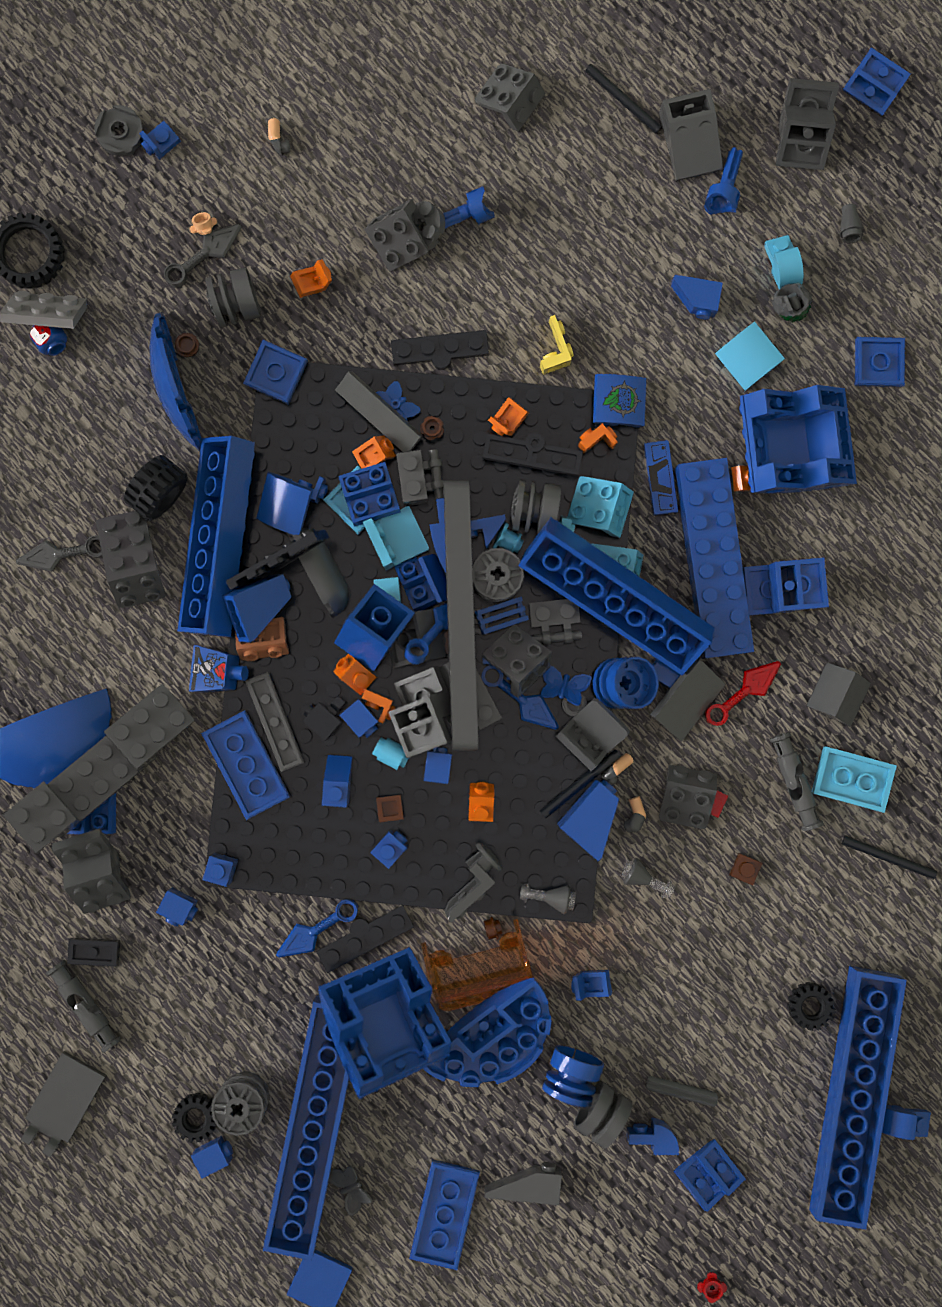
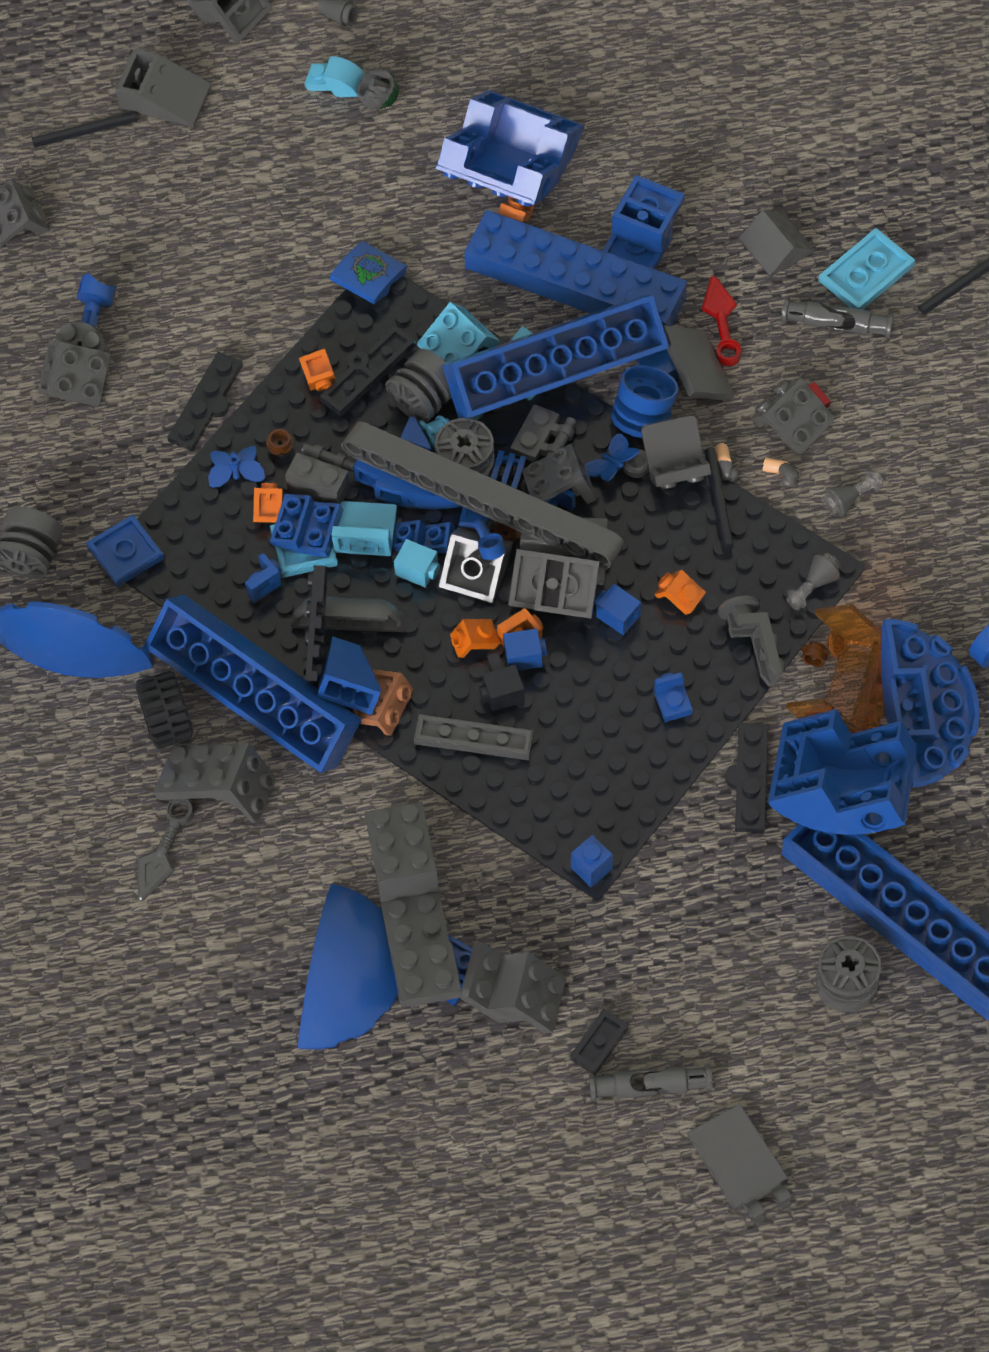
camera: 55 degrees left, 25 degrees down
(177, 907) = (604, 931): blue brick -> none
(184, 1127) = (838, 1019): black tyre -> none
(212, 1156) = (889, 1039): blue brick -> none
(215, 670) = (385, 760): blue torso -> none
(245, 764) = (499, 787): blue tile -> none
(284, 504) = (262, 604): blue slope -> none
(304, 938) = (713, 835): blue piece -> none
(311, 279) = (58, 470): orange bracket -> none
(337, 781) = (575, 708): blue slope -> none
(373, 627) = (442, 583): blue slope -> none
(378, 412) = (231, 479): dark grey tile -> none
(390, 753) = (576, 643): medium azure brick -> none
(390, 808) = (631, 675): reddish brown plate -> none
(435, 577) = (429, 517): blue slope -> none
(532, 708) = (614, 501): blue piece -> none
(553, 360) = (287, 296): light yellow bracket -> none
(591, 438) = (391, 300): orange bracket -> none
(591, 818) = (759, 496): blue slope -> none
(591, 984) = (927, 592): blue bracket -> none
(660, 478) = (466, 282): blue tile -> none
(698, 295) = (314, 161): blue slope -> none
(724, 196) = (237, 92): blue piece -> none
(745, 869) = (897, 405): reddish brown plate -> none
(749, 356) = (402, 151): medium azure slope -> none
(880, 361) = (483, 53): blue tile -> none

